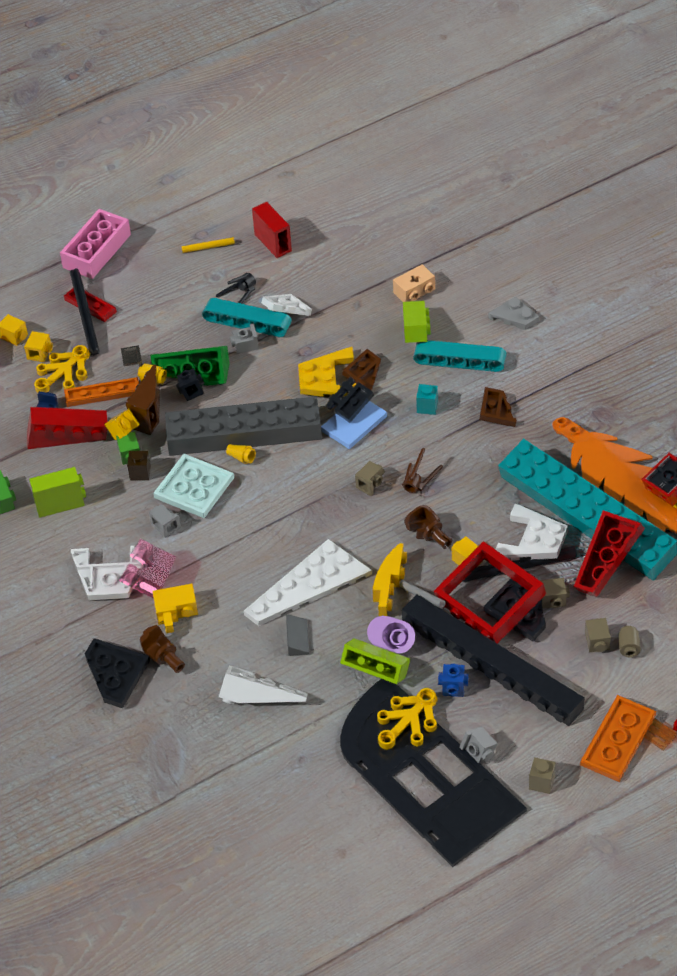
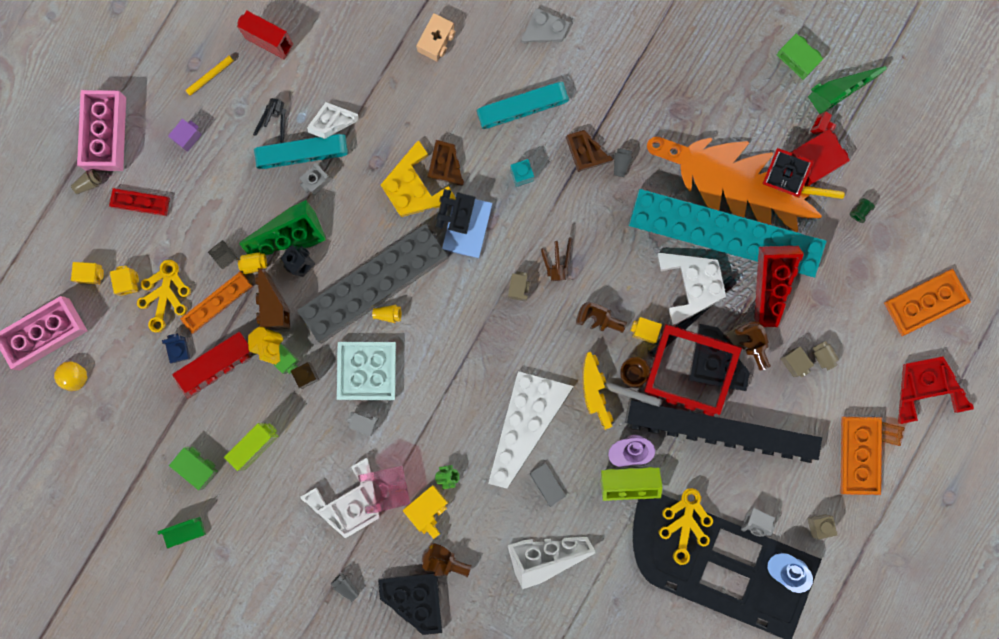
camera: 35 degrees left, 35 degrees up
(57, 273) = (86, 181): none -> dark tan cone
(60, 632) = (345, 587): none -> dark grey cone
(84, 312) = (142, 218): black axle -> none
(160, 272) = (185, 134): none -> medium lavender brick
(209, 587) = (447, 477): none -> bright green gear
(416, 321) = (465, 88): lime brick -> none
(433, 576) = (634, 371): none -> reddish brown hair
(453, 680) = (697, 469): blue brick -> none
(484, 791) = (790, 572): none -> light blue piece
(524, 426) = (621, 162): none -> dark grey cone
(564, 580) = (756, 343): none -> reddish brown piece

